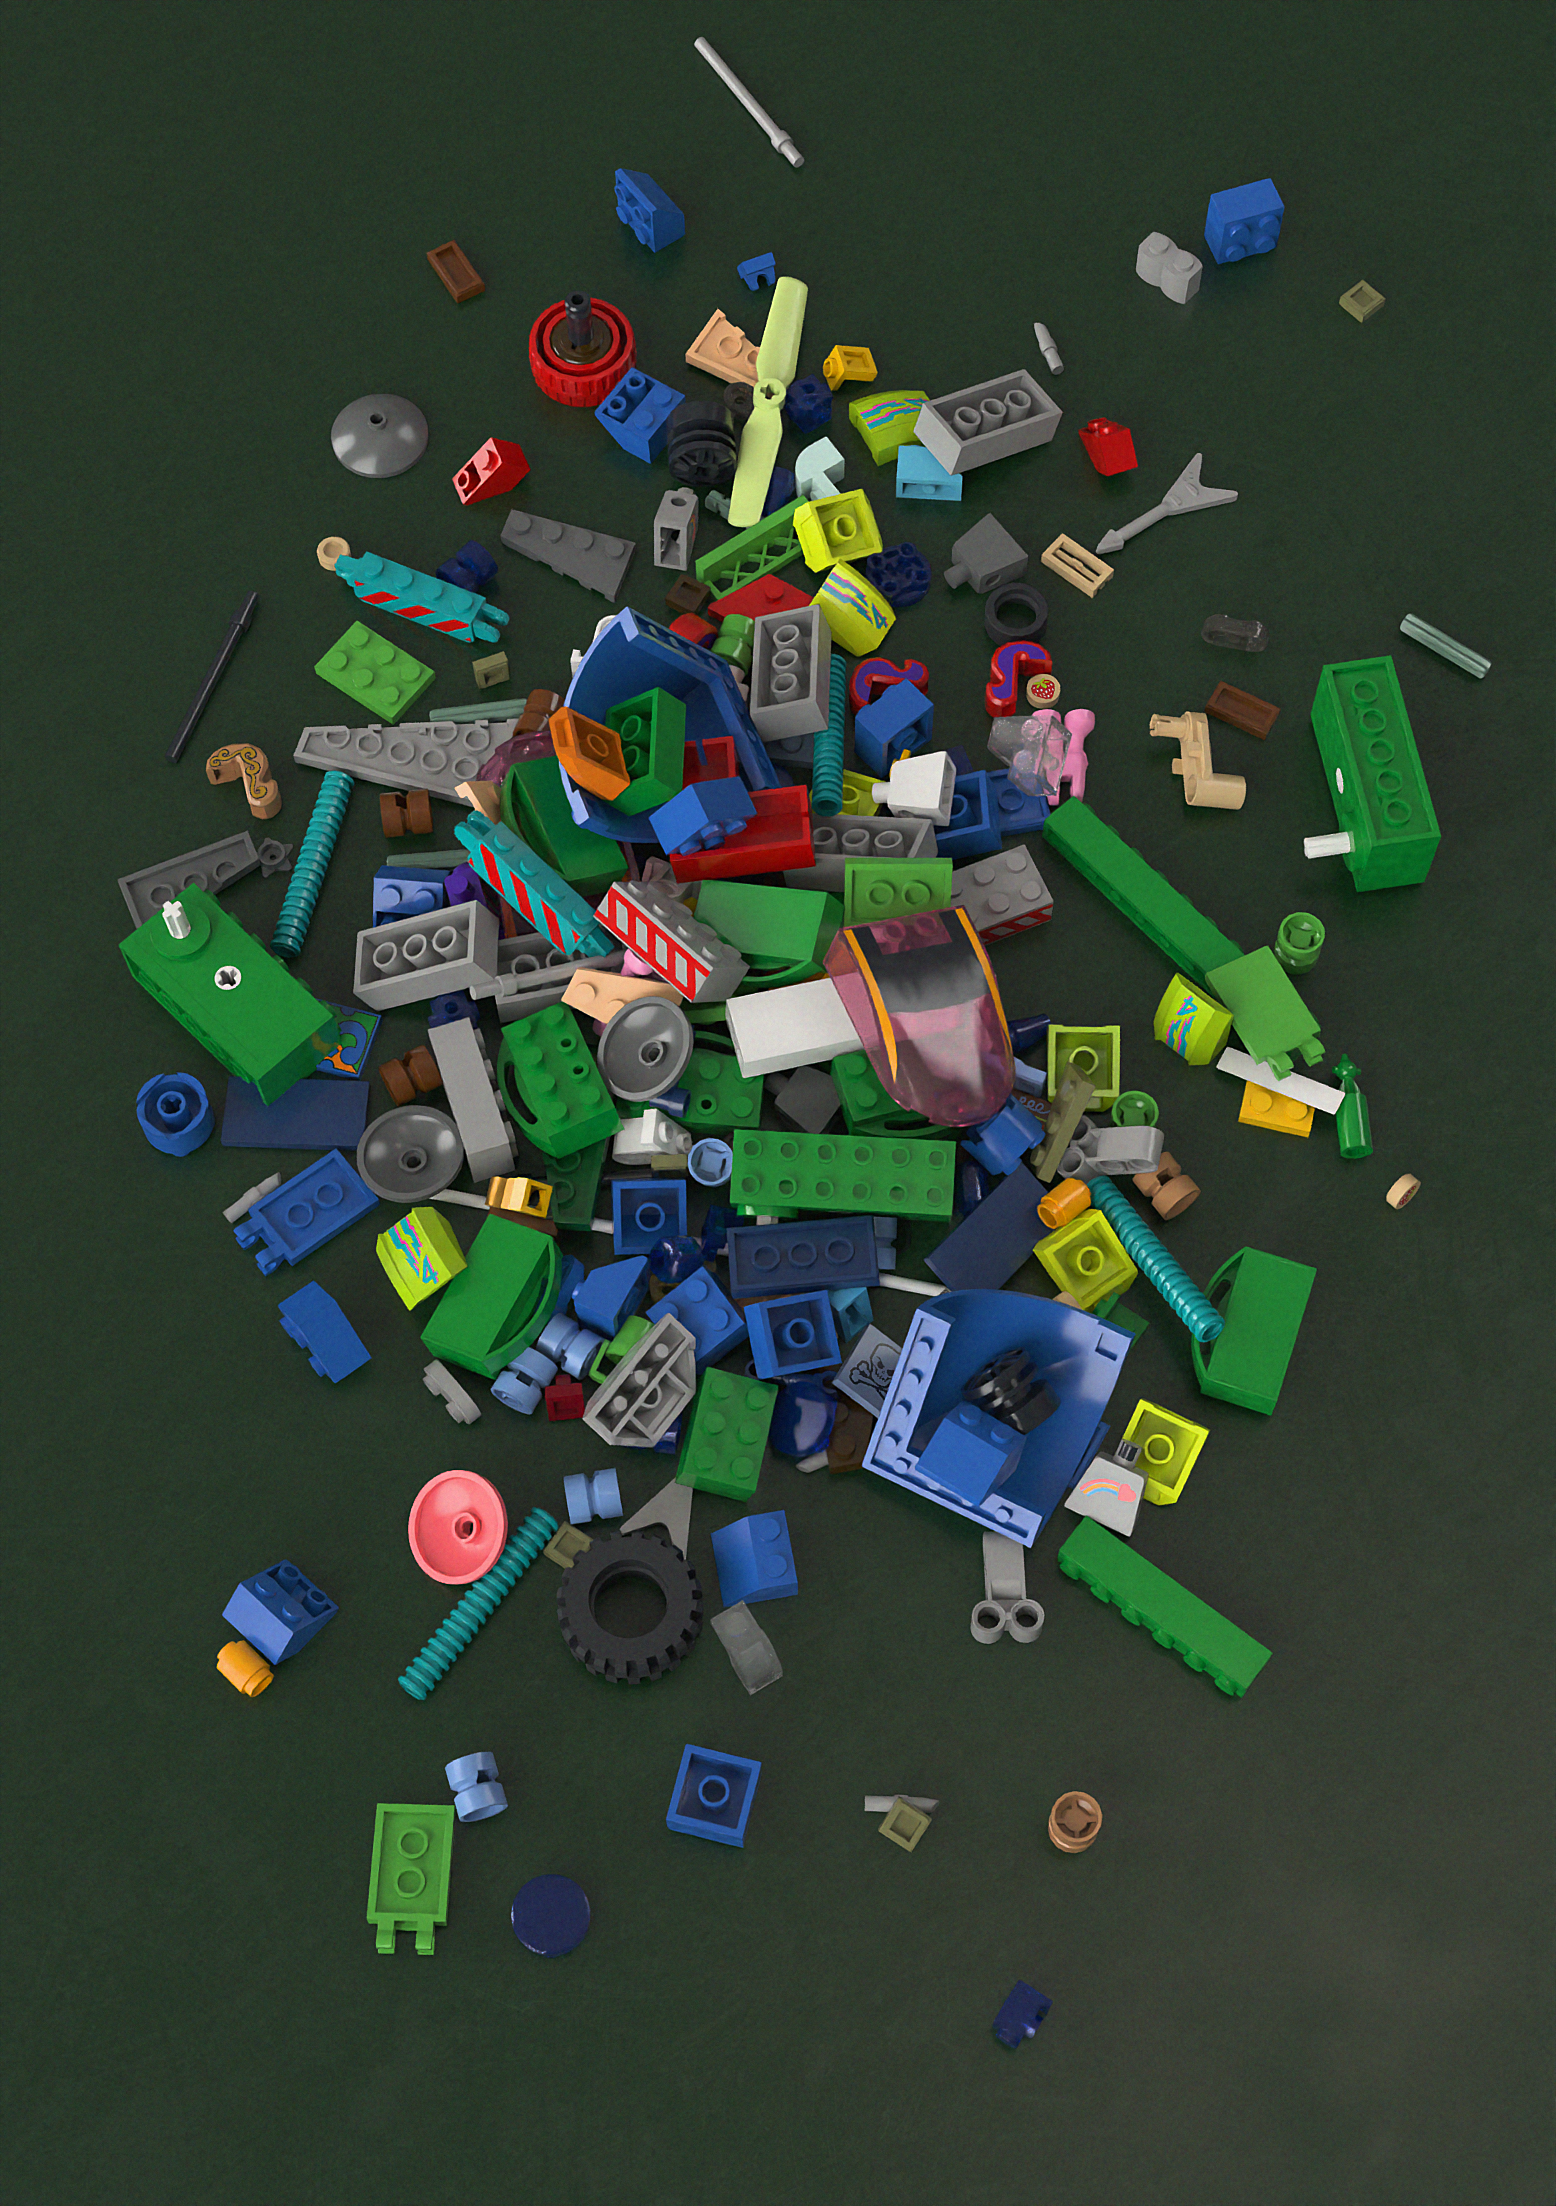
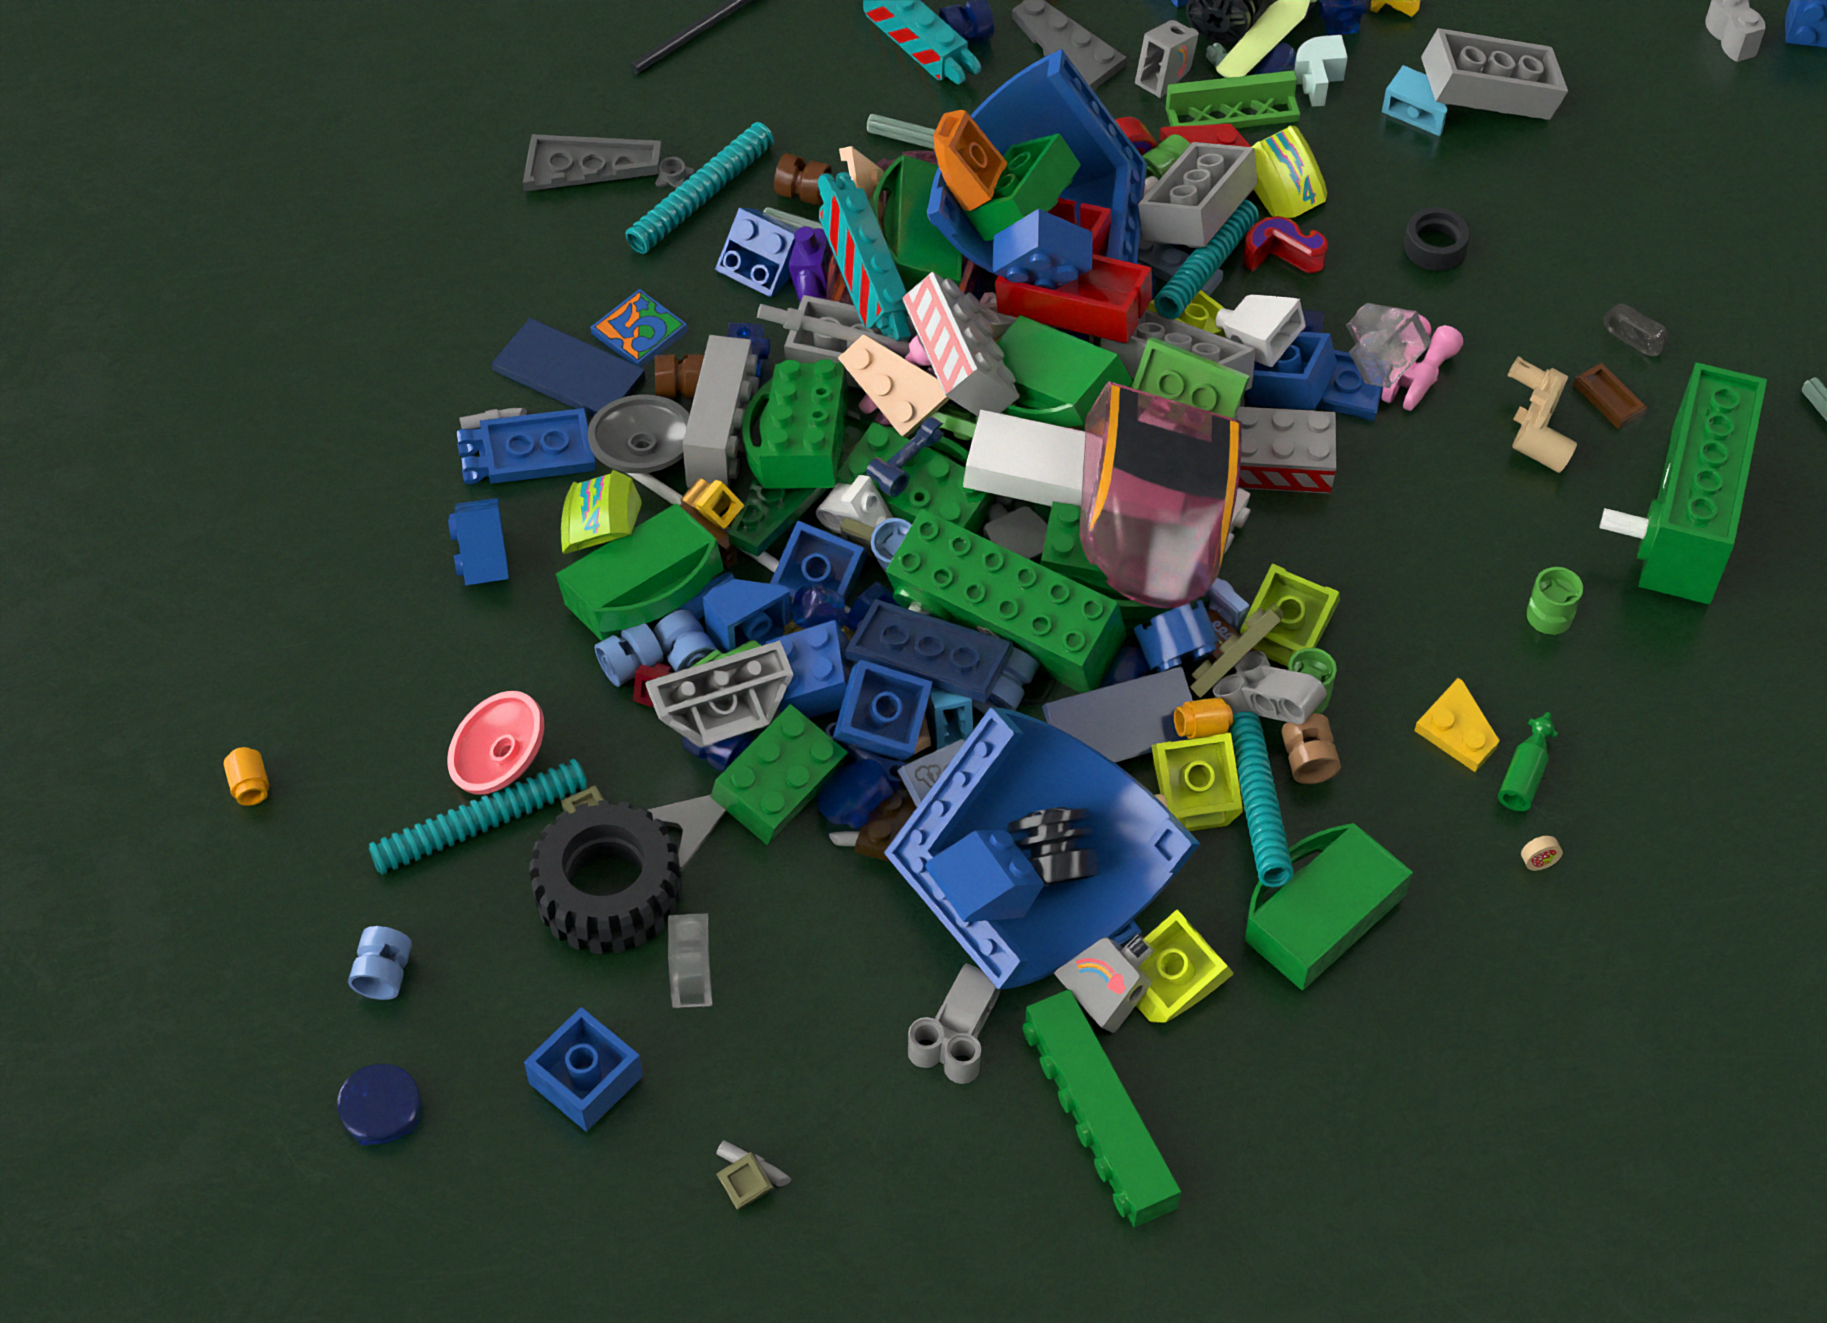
camera: 25 degrees right, 10 degrees down
(175, 1113) = (465, 323): blue brick -> none
(231, 993) = (568, 249): green piece -> none
(251, 763) = (693, 98): medium nougat animal -> none
(279, 1610) = (304, 743): blue slope -> none
(375, 672) = (844, 70): bright green plate -> none
(409, 755) = (821, 134): light grey wing -> none
(411, 1872) = (279, 1011): bright green tile -> none
(426, 955) = (735, 280): light grey brick -> none
(460, 1404) = (561, 650): light grey plate -> none
(491, 670) = (941, 101): olive tile -> none
(593, 1496) = (624, 772): medium blue wheel -> none
(633, 1042) = (885, 420): dark grey dish -> none
(687, 595) = (1149, 112): dark brown plate -> none
(755, 1559) = (747, 892): blue slope -> none
(837, 530) = (1314, 105): neon yellow slope -> none
(888, 421) = (1400, 45): lime slope -> none
(892, 724) = (1270, 269): blue brick -> none
(900, 574) = (1349, 169): clear blue tile -> none
(986, 557) = (1434, 181): dark grey torso -> none
(1006, 664) = (1406, 272): red animal -> none
(1027, 1031) = (1246, 569): clear blue cone -> none
(1043, 691) = (1430, 307): tan tile -> none
(1048, 348) = (1588, 49): light grey piece -> none
(1072, 569) = (1512, 225): tan tile -> none
(1074, 1822) = (904, 1253): medium nougat wheel -> none
(1109, 446) = (1600, 139): red slope -> none
(1121, 1316) = (1209, 855): green bracket -> none
(1141, 892) = (1449, 550): green brick -> none
(1183, 497) = (1649, 207): light grey piece -> none
(1192, 1022) = (1413, 622): lime slope -> none
(1266, 1011) = (1487, 637): bright green tile -> none
(1294, 1086) = (1473, 708): white sticker -> none

